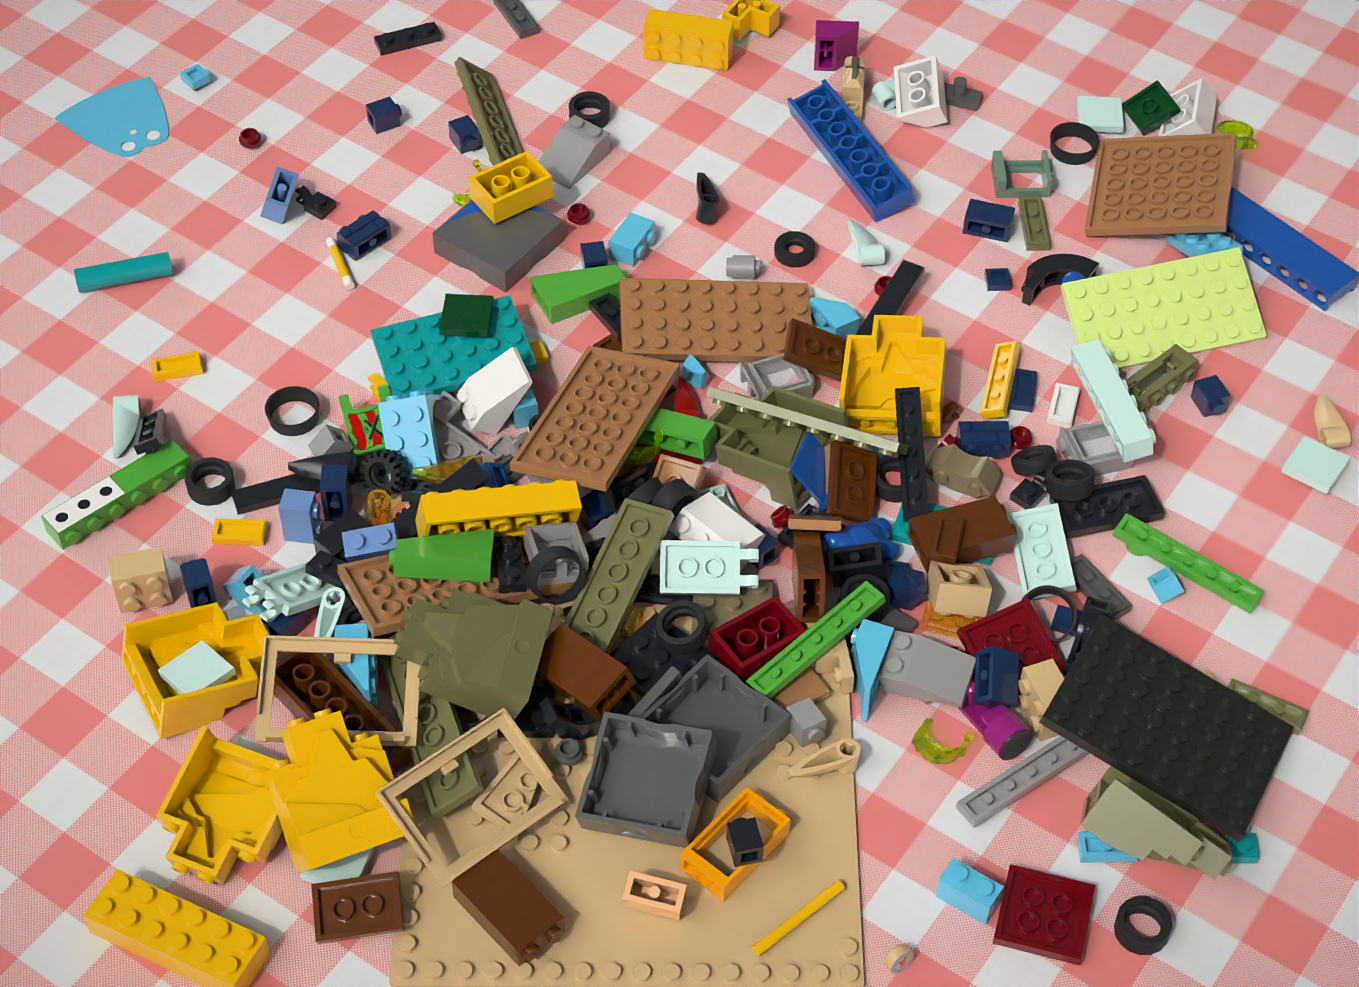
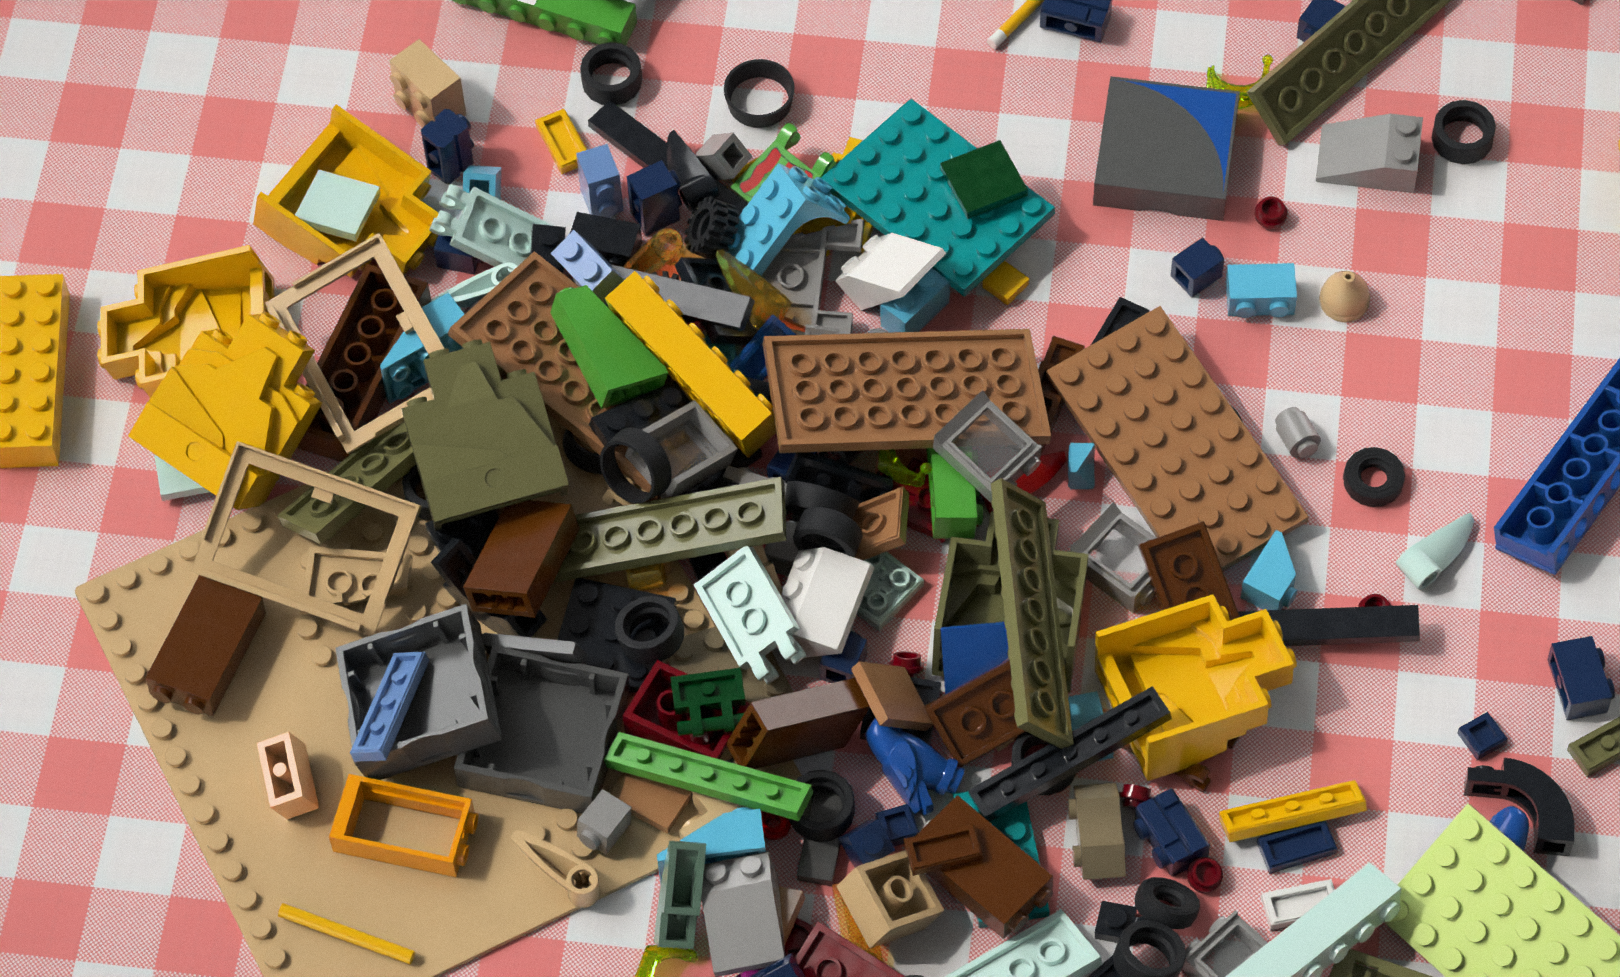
camera: 65 degrees right, 10 degrees up
(357, 907) = (136, 509): reddish brown plate -> none
(511, 187) = (1223, 113): yellow brick -> none
(568, 751) = (434, 601): dark grey plate -> none
(569, 292) = (1123, 267): bright green slope -> none
(650, 798) = (389, 706): none -> medium blue tile
(661, 207) = (1344, 296): none -> tan helmet
(675, 390) = (986, 446): none -> light grey window
(707, 200) = (1387, 333): black piece -> none
(744, 841) = (386, 826): black brick -> none
(758, 608) = (708, 692): none -> dark green plate
(855, 560) = (867, 773): black brick -> none
(896, 696) = (680, 895): none -> sand green slope

